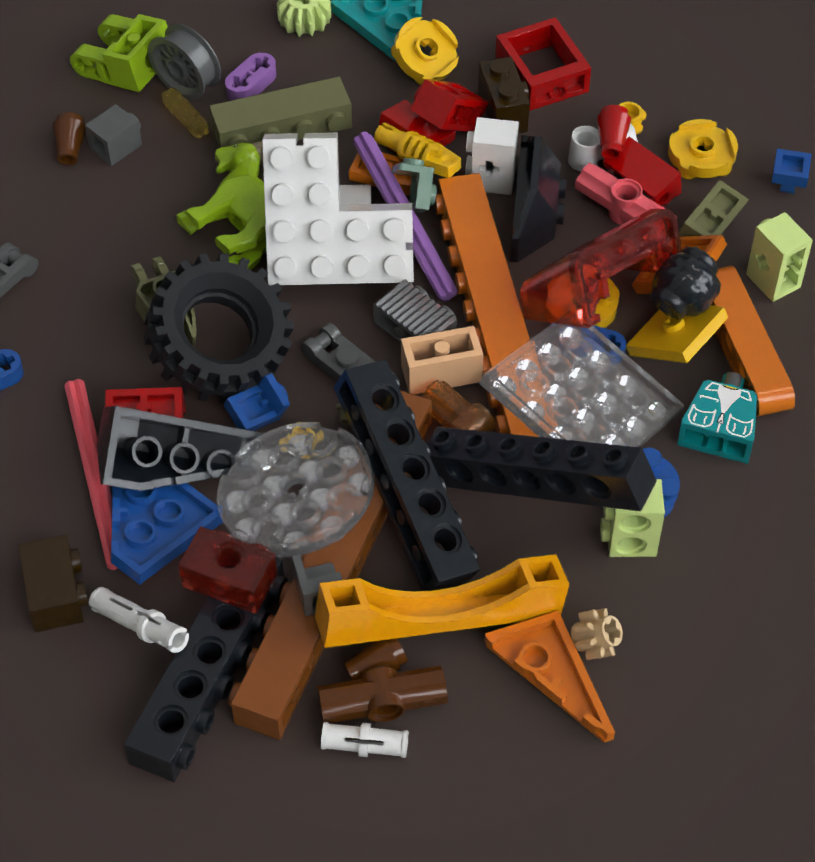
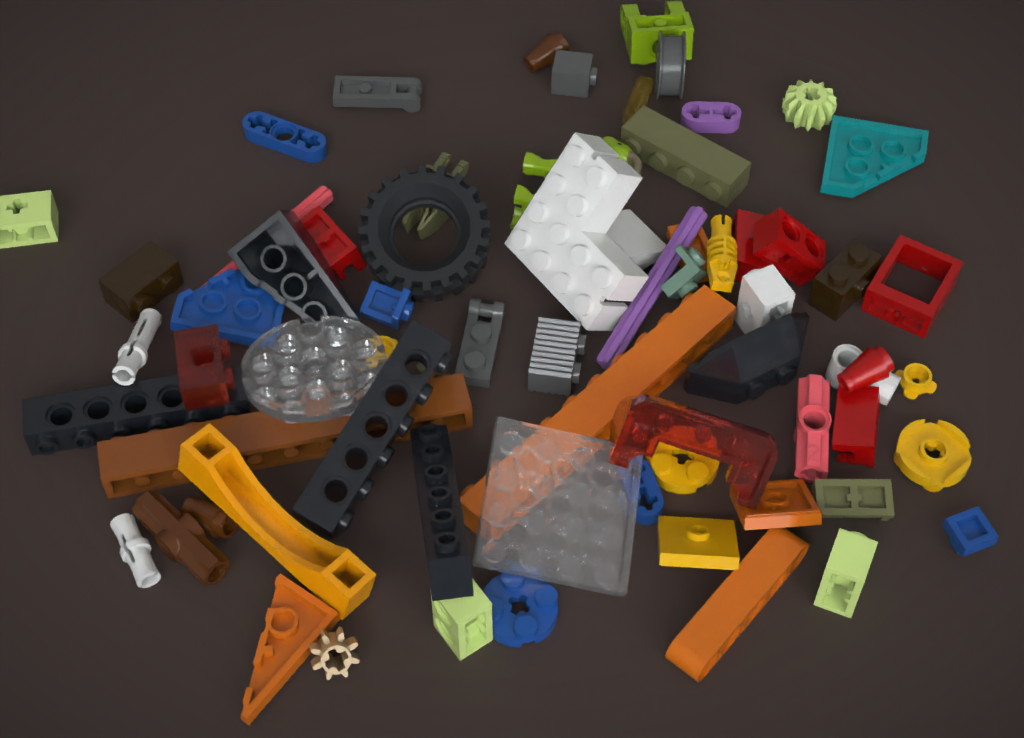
camera: 55 degrees right, 0 degrees up
(308, 581) = (232, 424): dark grey panel -> none
(425, 33) = (855, 187): yellow plate -> none
(442, 356) = (520, 390): light nougat brick -> none
(455, 412) = (476, 444): clear orange piece -> none
(685, 283) = (729, 511): black hair -> none
(721, 419) = (634, 628): teal torso -> none

